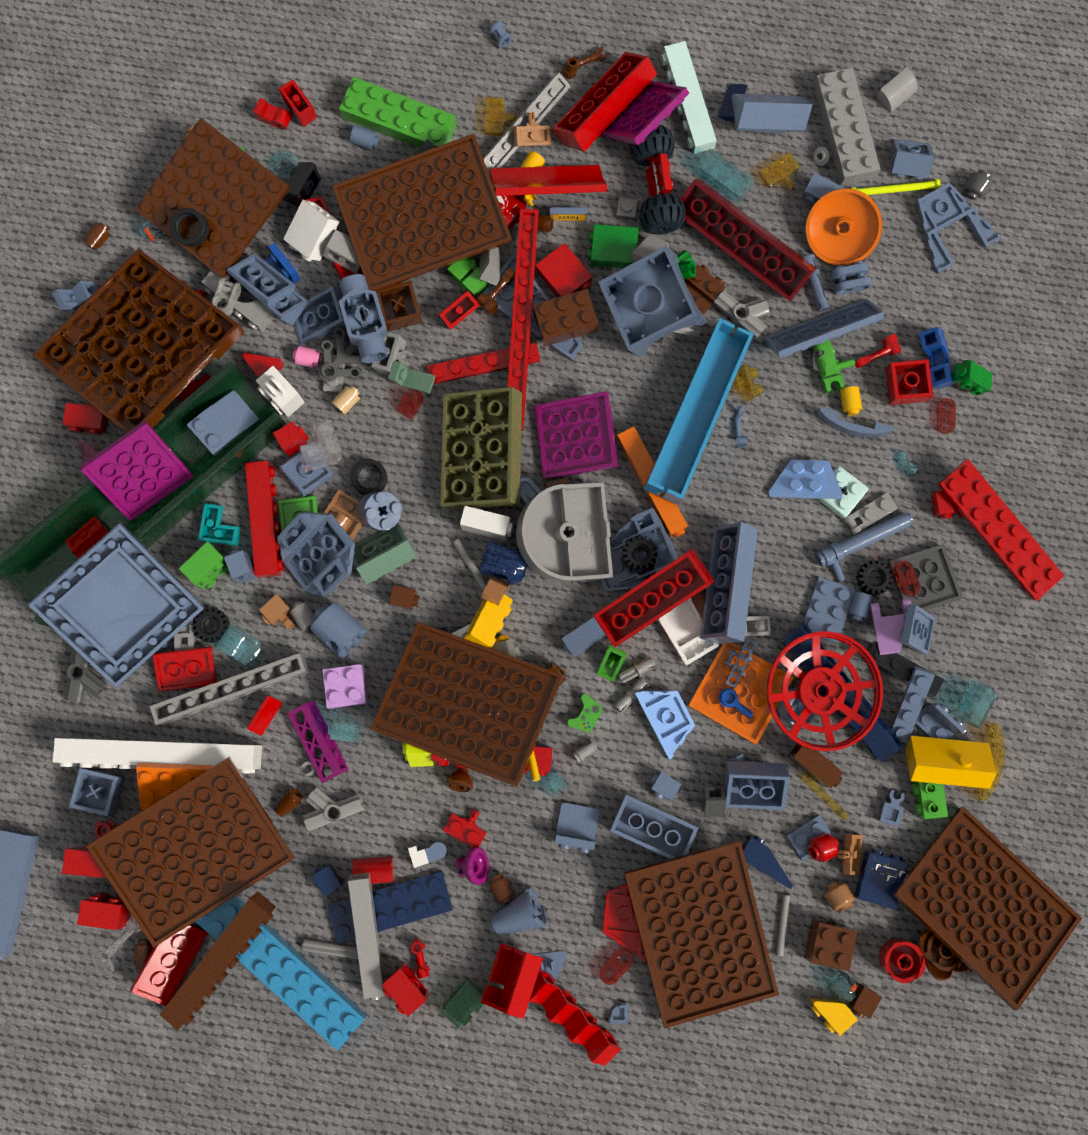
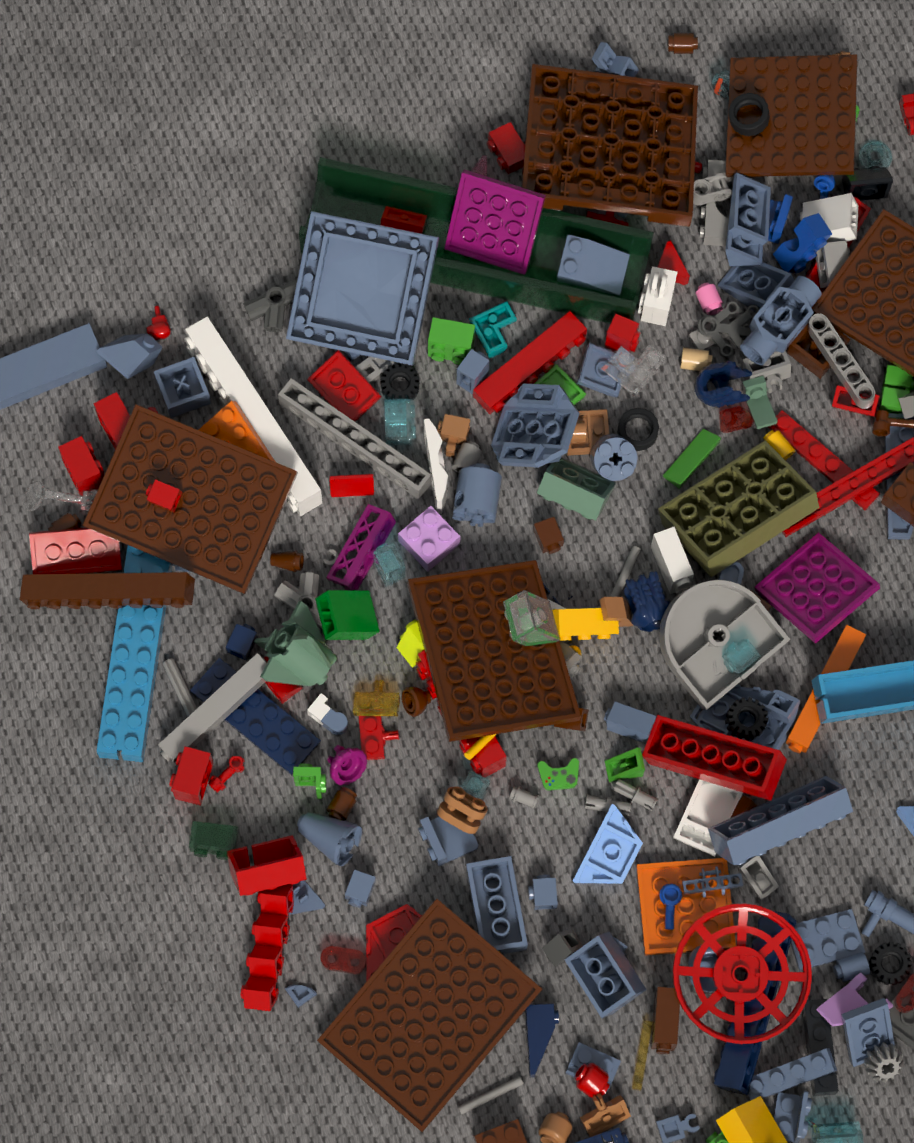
camera: 55 degrees right, 10 degrees down
(37, 775) = (160, 327): none -> red piece
(42, 813) = (131, 353): none -> sand blue slope
(175, 873) = (163, 495): none -> red brick
(281, 214) = (825, 184): none -> blue plate
(294, 643) = (436, 464): none -> white slope
(317, 271) = (796, 253): none -> blue arch
(362, 789) = (347, 615): none -> green brick
(366, 848) = (297, 651): none -> sand green brick
(371, 391) = (720, 375): none -> dark blue piece
(417, 292) = (845, 370): none -> light grey beam
(417, 454) = (692, 458): none -> bright green slope
(442, 810) = (376, 702): none -> clear yellow plate
(451, 386) = (779, 444): none -> yellow brick
(464, 660) = (530, 619): none -> clear slope
(464, 900) = (310, 776): none -> bright green bracket
(567, 805) = (462, 810): none -> medium nougat brick
(572, 919) = (360, 888): none -> sand blue brick
(591, 526) = (740, 656): none -> clear light blue brick
(942, 632) = (884, 1062): none -> light grey gear

